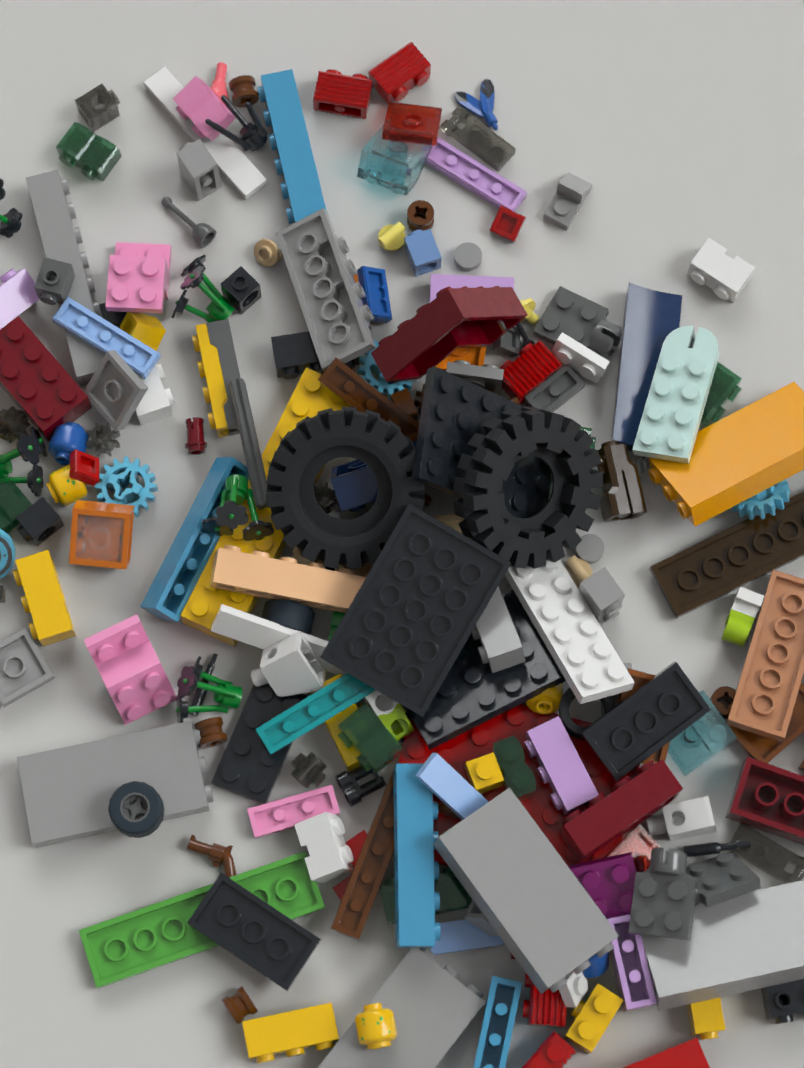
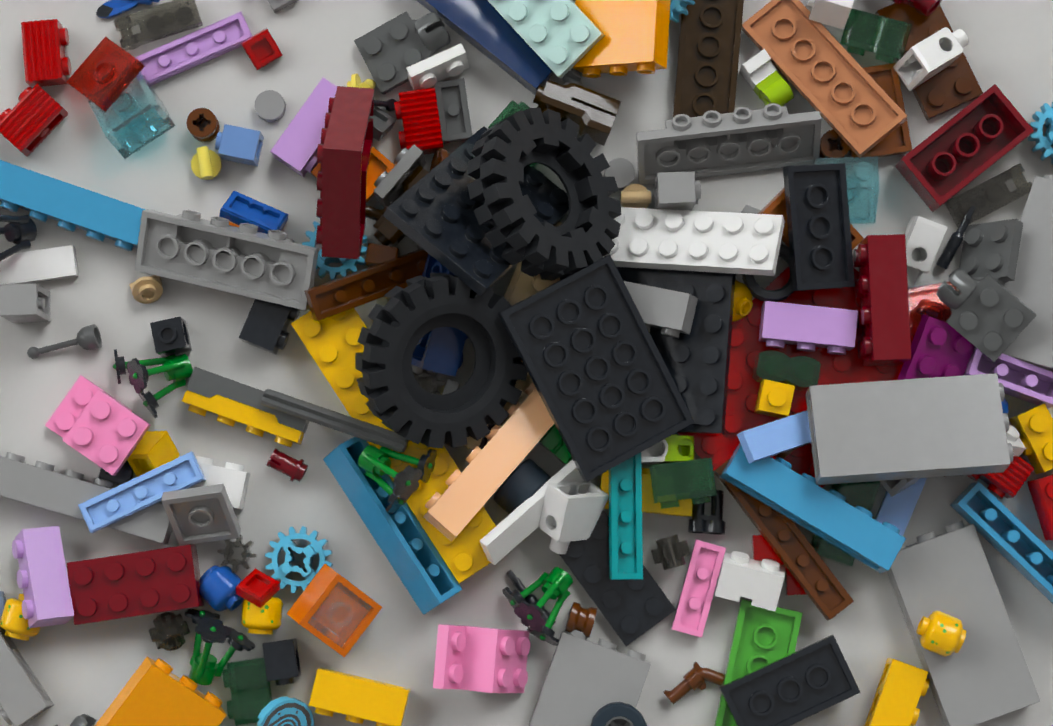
camera: 60 degrees left, 10 degrees up
(54, 281) = (55, 509): dark grey brick -> none
(670, 614) = (729, 142): none -> light grey plate

